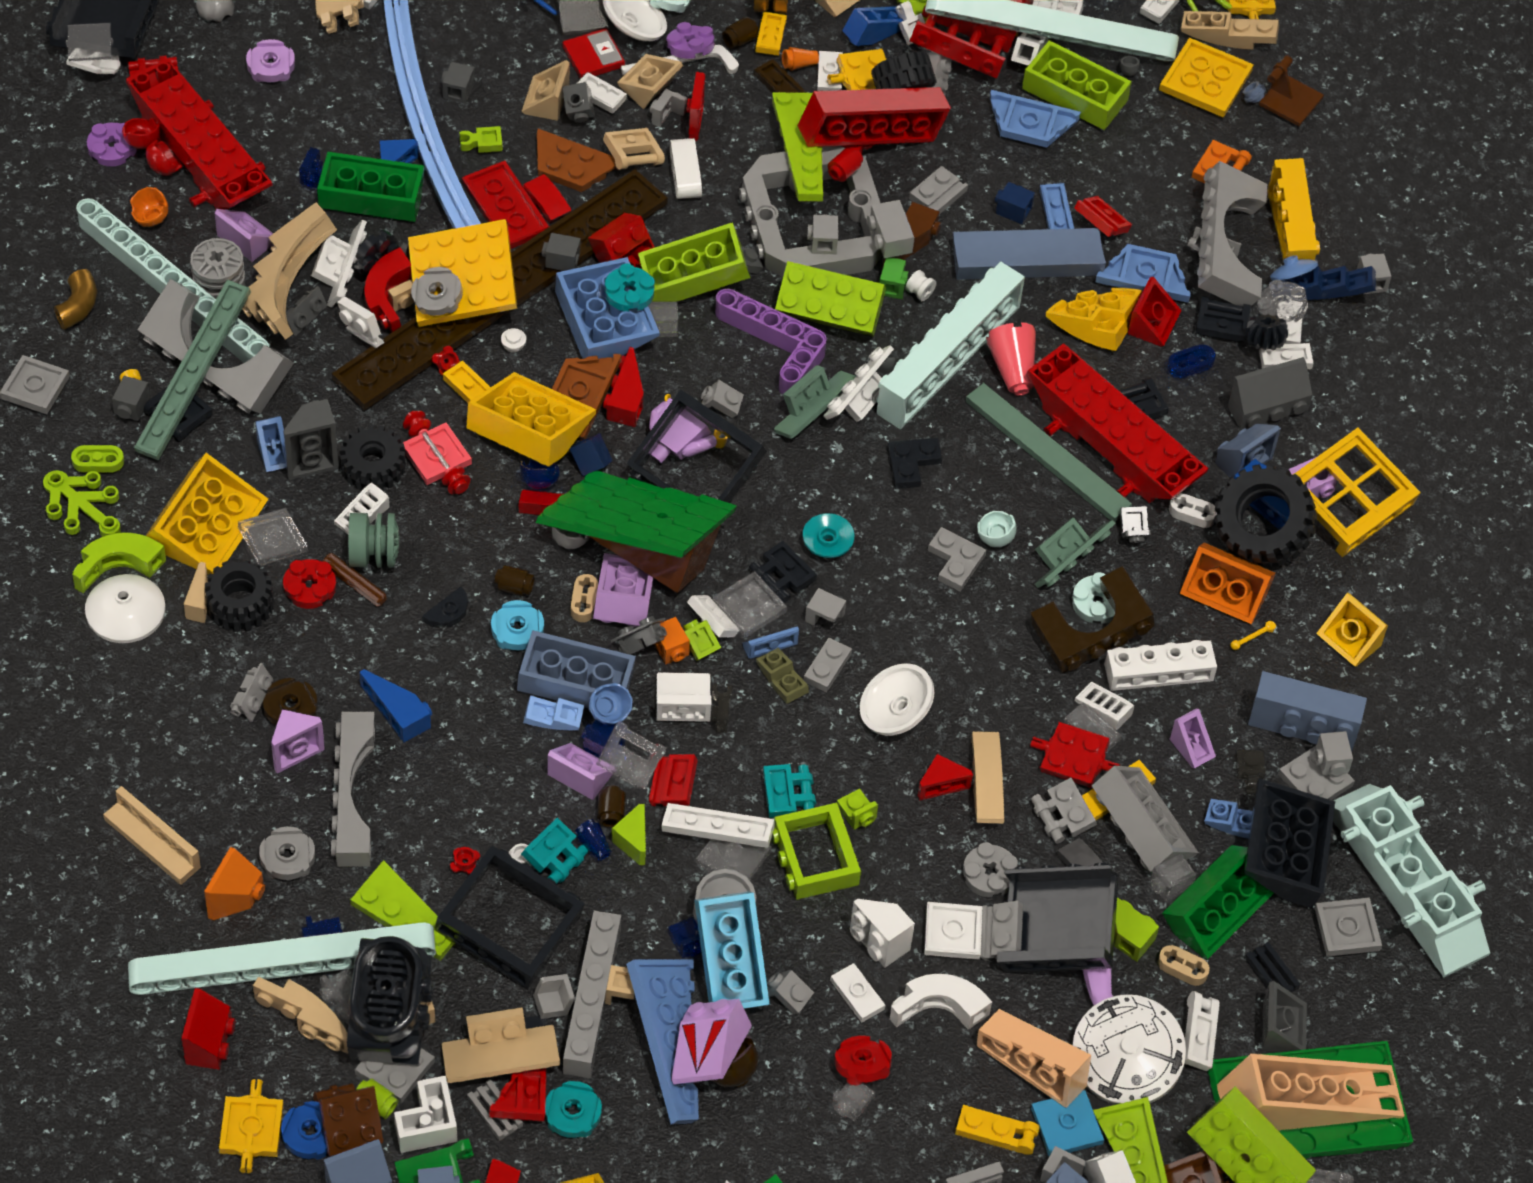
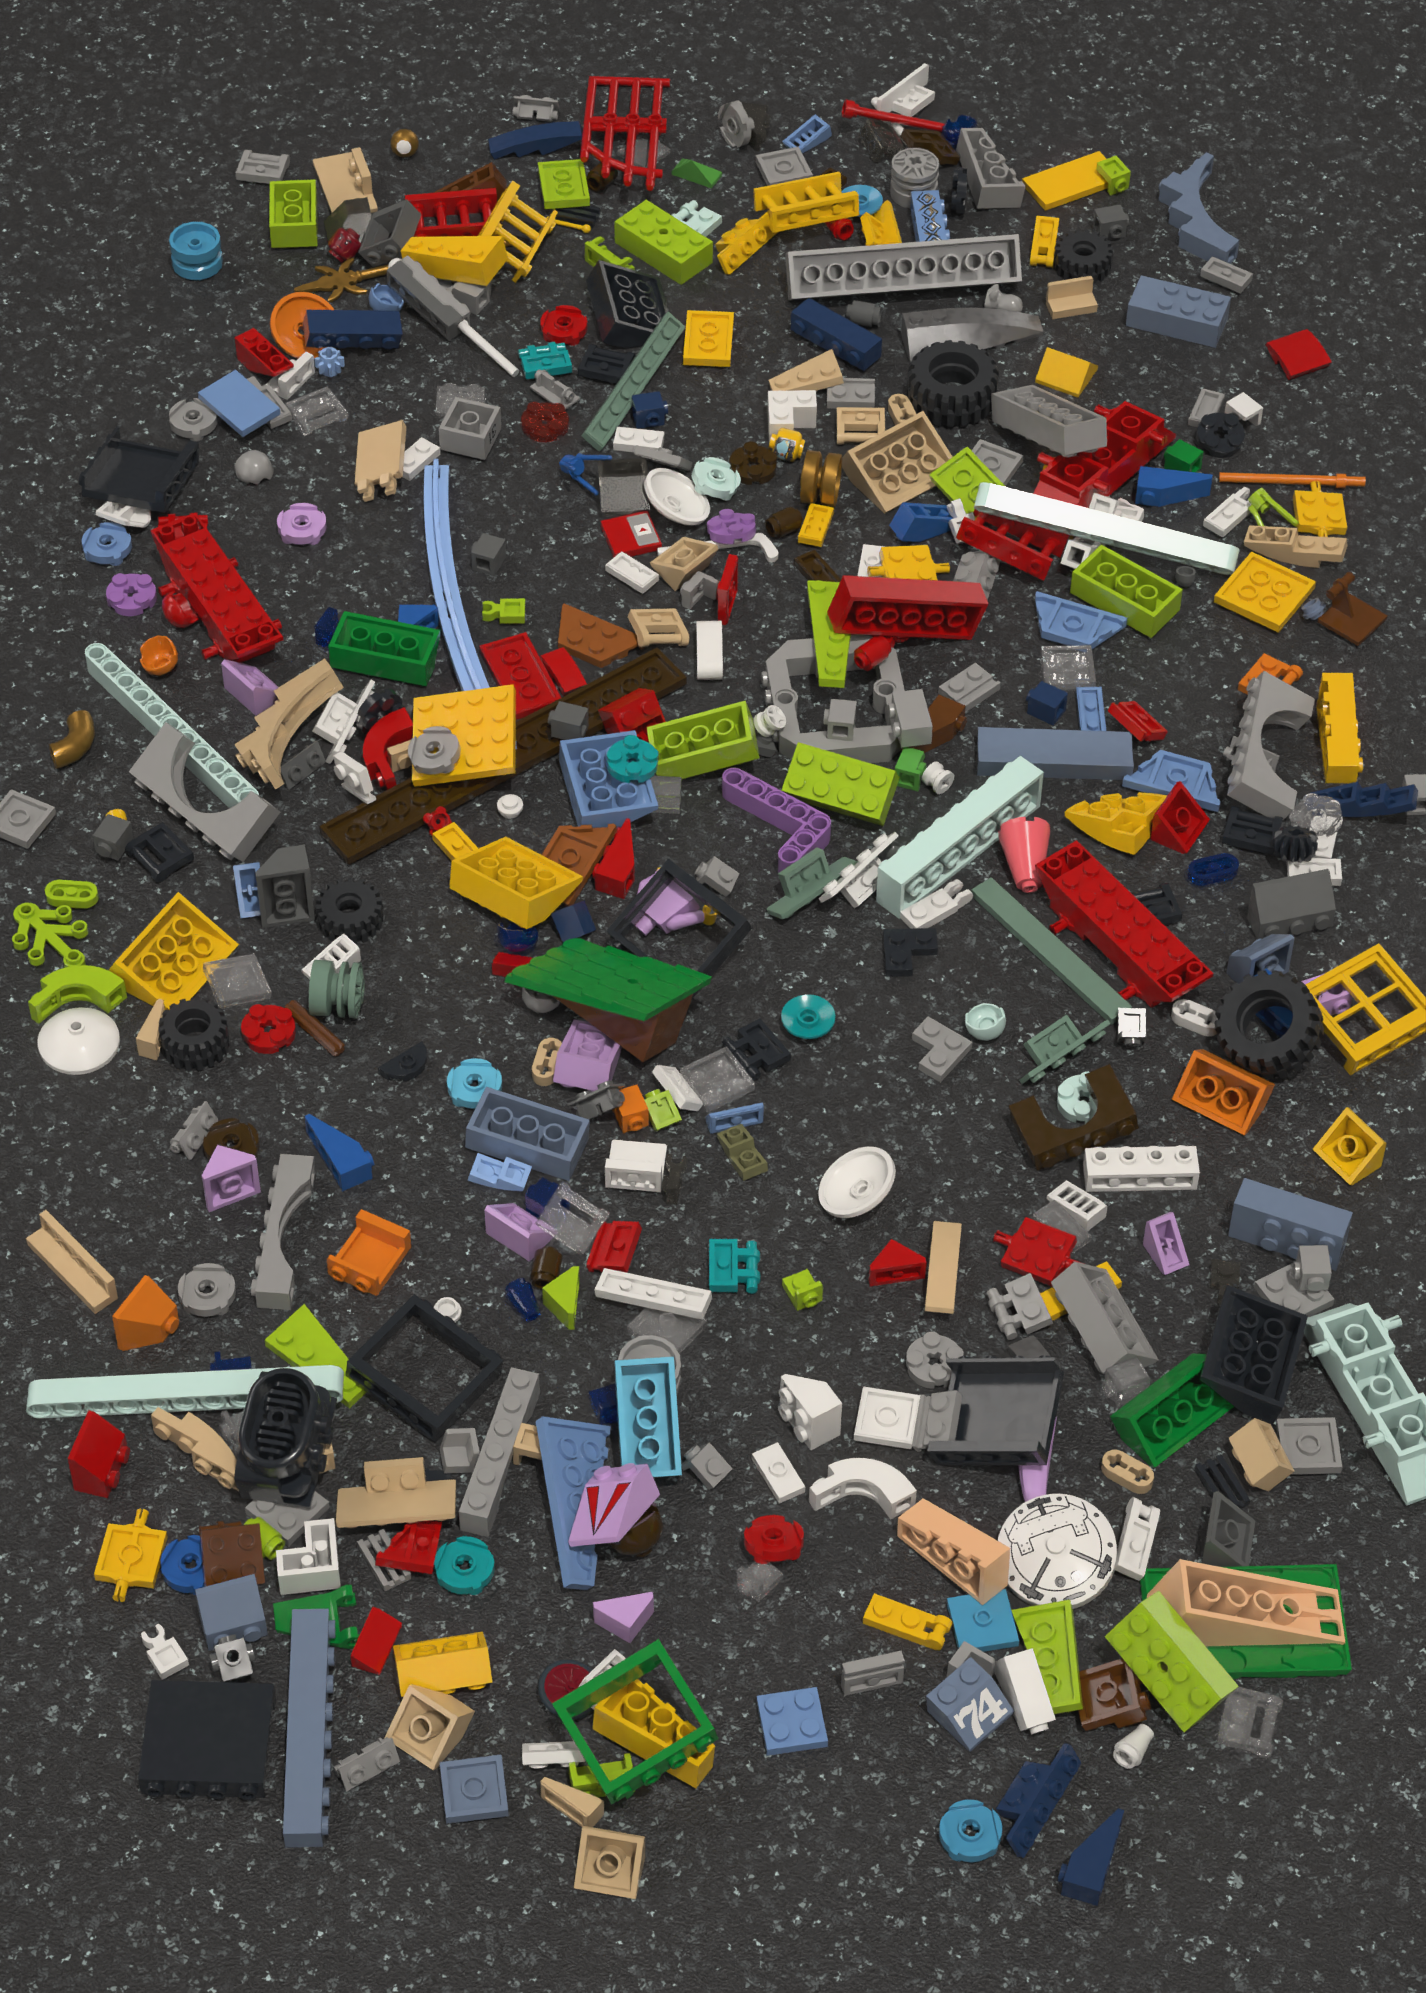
camera: 10 degrees right, 5 degrees down
(84, 103) = (106, 554): none -> medium blue plate
(89, 42) = (120, 494): clear piece -> none
(140, 132) = (159, 583): red hair -> none
(192, 370) = (177, 813): sand green tile -> none
(215, 263) = (219, 718): light grey wheel -> none
(436, 453) = (415, 910): coral plate -> none
(440, 804) = (370, 1253): none -> orange panel
(461, 854) = (386, 1304): red plate -> none
(514, 580) = (477, 1039): dark brown brick -> none
(546, 92) = (579, 569): tan slope -> none
(548, 845) = (477, 1299): teal plate -> none
(578, 102) = (607, 579): dark grey brick -> none
(610, 703) = (555, 1163): medium blue hair -> none
(731, 1146) = (624, 1615): none -> lavender slope
(755, 239) = (769, 721): none -> white wheel
(798, 58) = (840, 550): orange cone -> none
(823, 882) = (758, 1358): lime window -> none
(826, 606) = (794, 1085): light grey panel -> none
(827, 664) = (791, 1144): light grey plate -> none
(904, 71) = (945, 564): black tyre -> none
(934, 415) = (936, 906): none -> white hinge
(1030, 164) = (1068, 666): none -> clear plate
(1133, 930) = (1076, 1431): lime slope -> none
(1228, 818) = (1192, 1326): medium blue slope -> none
(1269, 627) = (1263, 1139): yellow hinge -> none
(1293, 268) = (1332, 781): medium blue dish -> none
(1306, 940) = (1260, 1455): none -> tan brick

